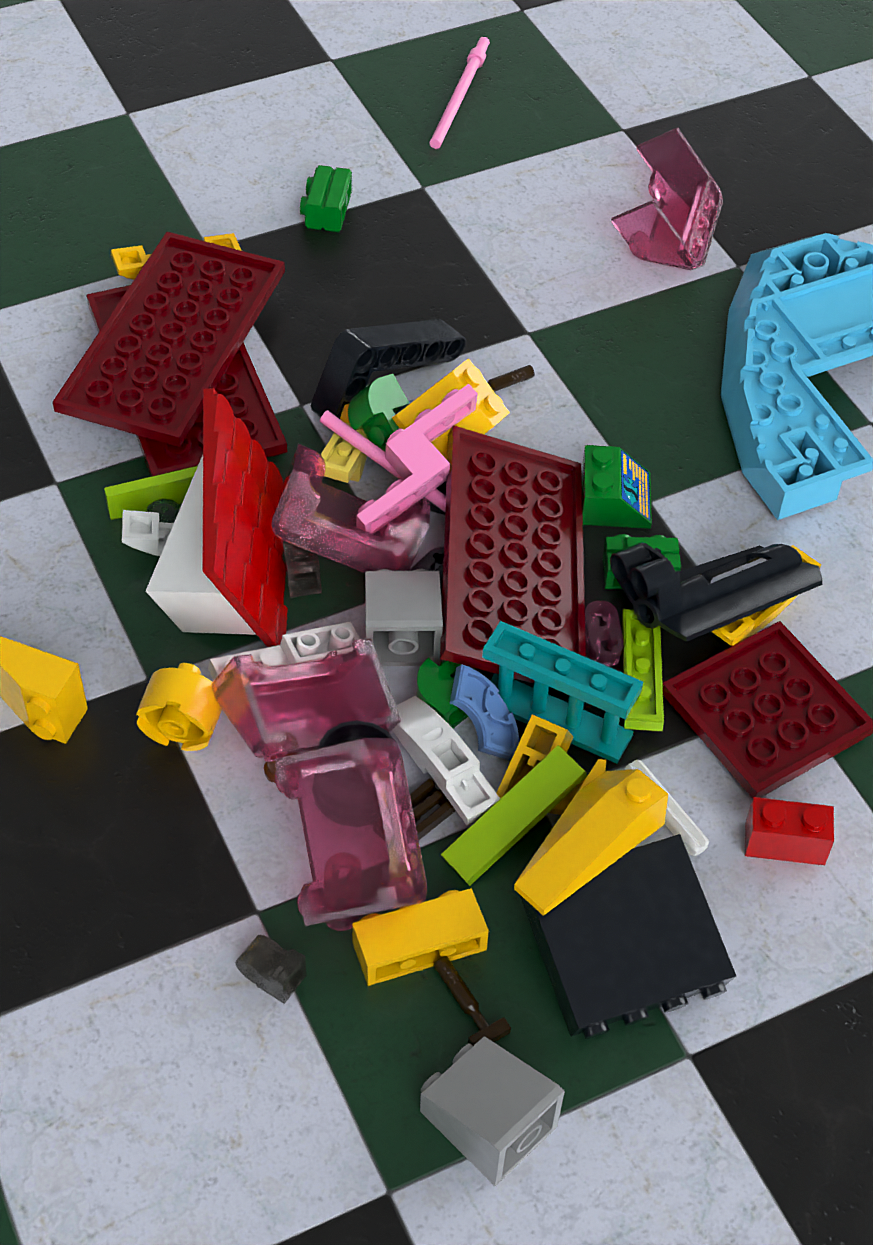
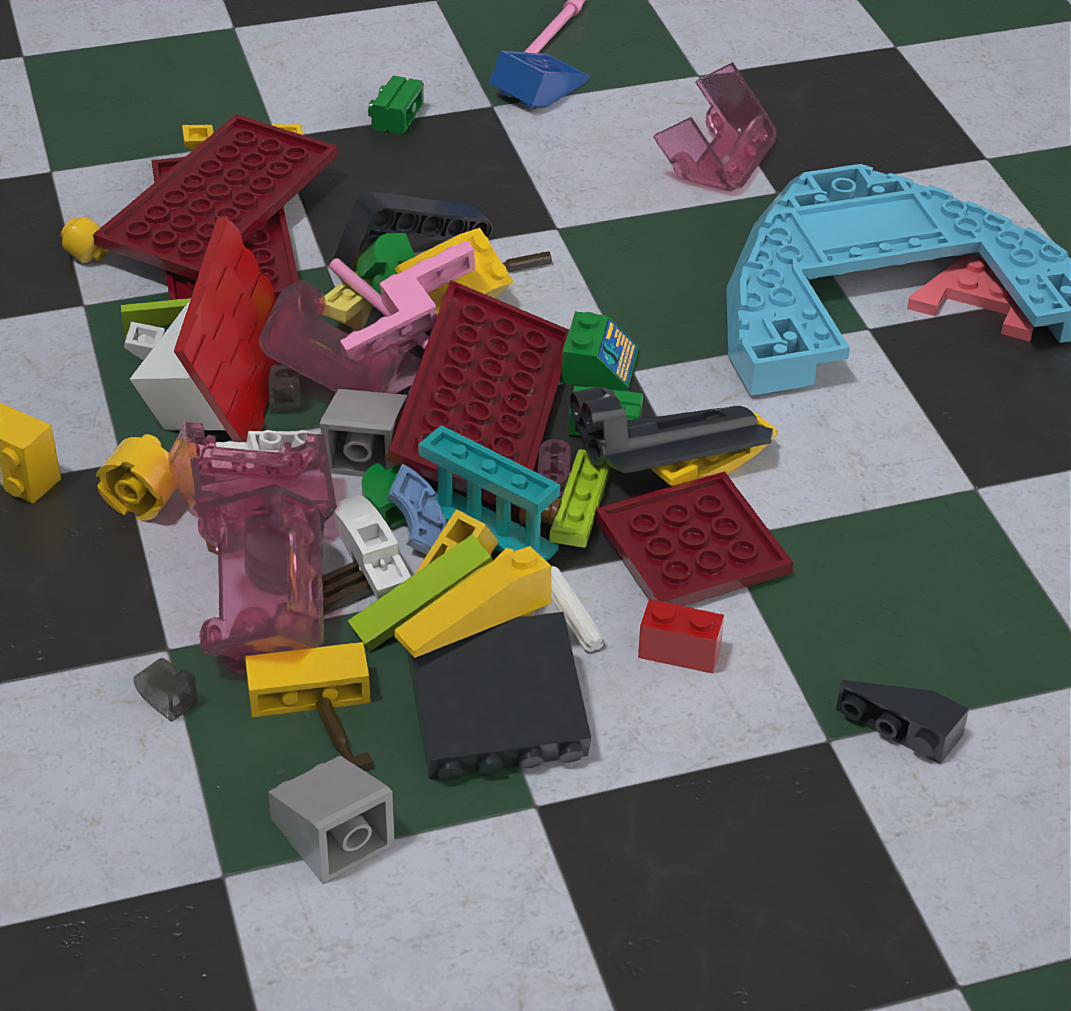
camera: 10 degrees right, 10 degrees down
(36, 405) = (79, 241): none -> yellow head
(462, 151) = (535, 78): none -> blue slope

